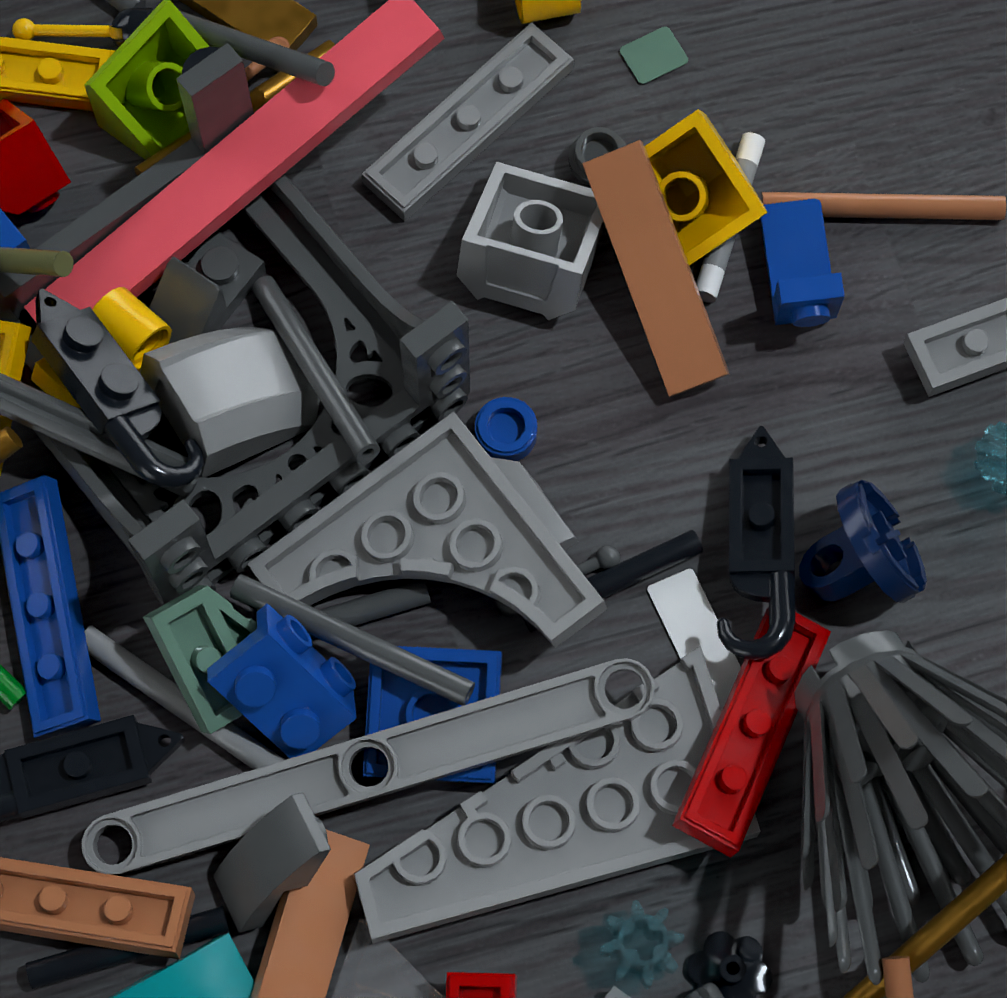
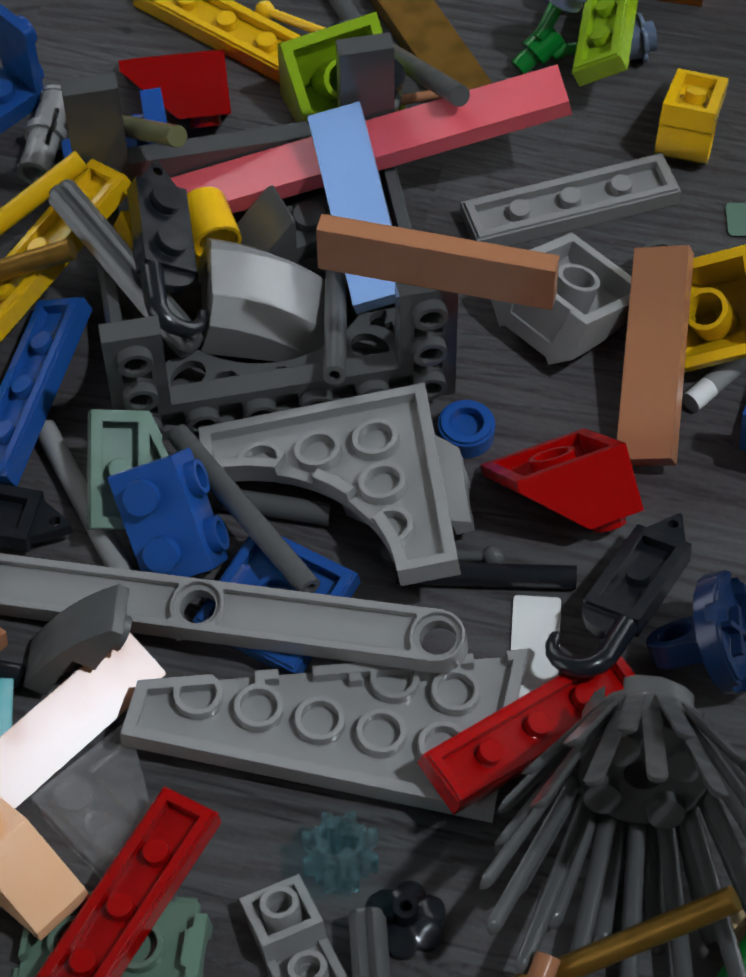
camera: 30 degrees right, 15 degrees down
(278, 242) = (352, 187): none -> light blue tile
(442, 308) = (437, 261): none -> nougat tile
(640, 441) = (575, 476): none -> red slope

